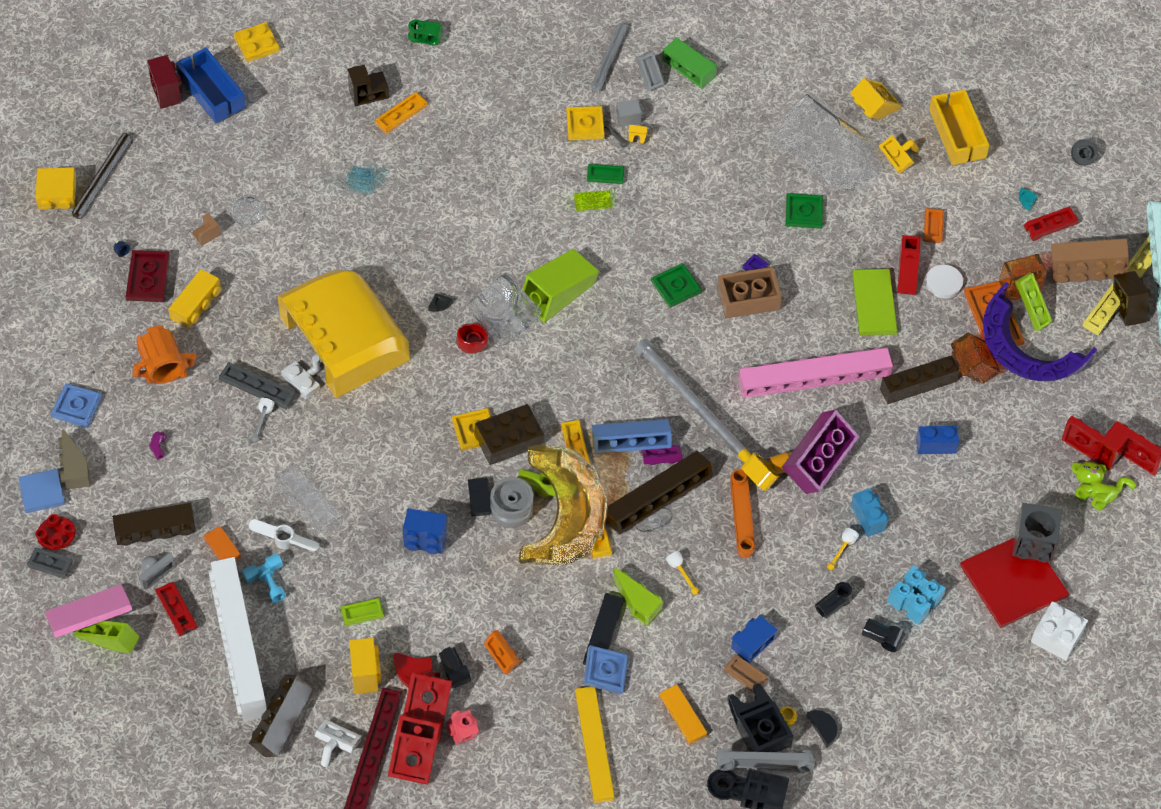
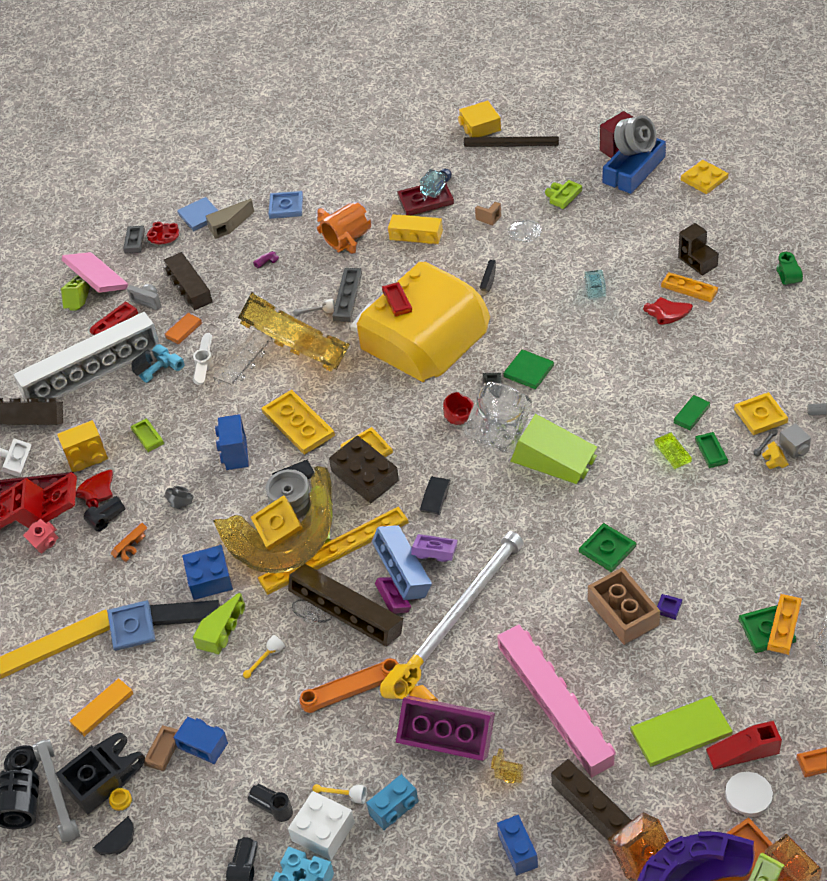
camera: 80 degrees right, 10 degrees down
(142, 259) = (432, 183): none -> clear light blue brick
(194, 64) = (635, 135): none -> light grey wheel
(216, 159) = (562, 195): none -> lime hinge
(262, 591) = (141, 362): none -> black slope
(304, 259) = (489, 276): none -> black tile
(306, 440) = (292, 333): none -> clear yellow windscreen
(331, 330) = (396, 299): none -> red tile
(414, 474) = (298, 422): none -> yellow plate
(422, 140) = (667, 311): none -> red arm
(440, 270) = (528, 369): none -> green tile
(466, 597) = (178, 497): none -> dark grey plate
(551, 515) = (276, 522): none -> yellow plate
(556, 170) = (691, 412): none -> green tile
(561, 389) = (434, 495): none -> black slope
(572, 592) = (207, 572): none -> blue brick
(627, 405) = (434, 547): none -> medium lavender plate
(809, 196) = (784, 624): none -> light orange tile
(871, 425) = (506, 770): none -> clear yellow bracket
(872, 568) = (321, 825): none -> white brick

